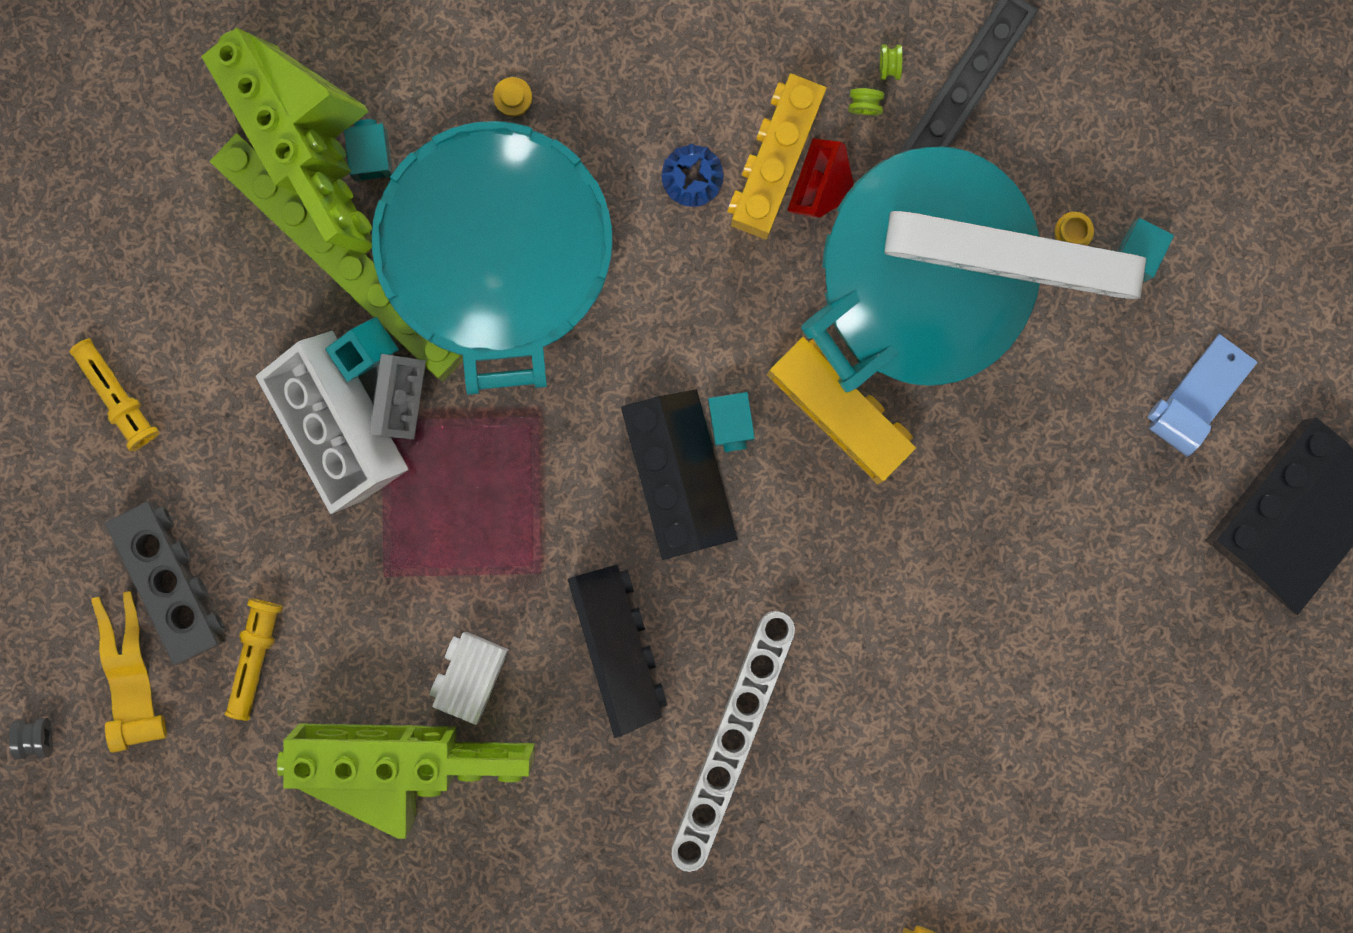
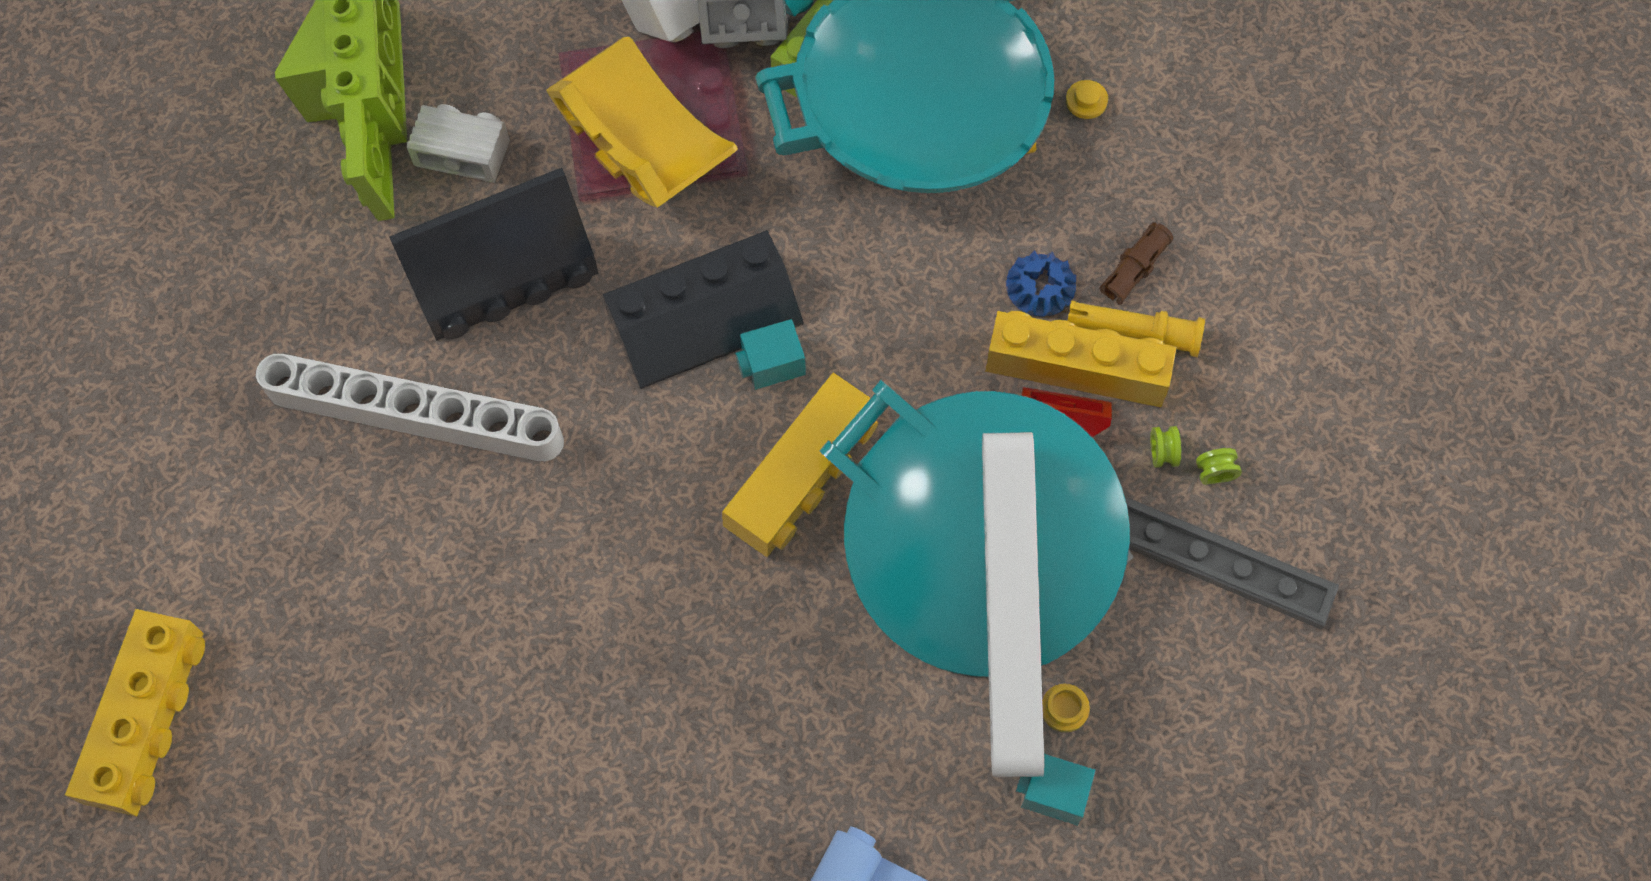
camera: 85 degrees right, 20 degrees down
(493, 505) = (637, 124): none -> yellow panel
(688, 88) = (1136, 262): none -> reddish brown pin
(756, 84) = (1172, 331): none -> yellow pin

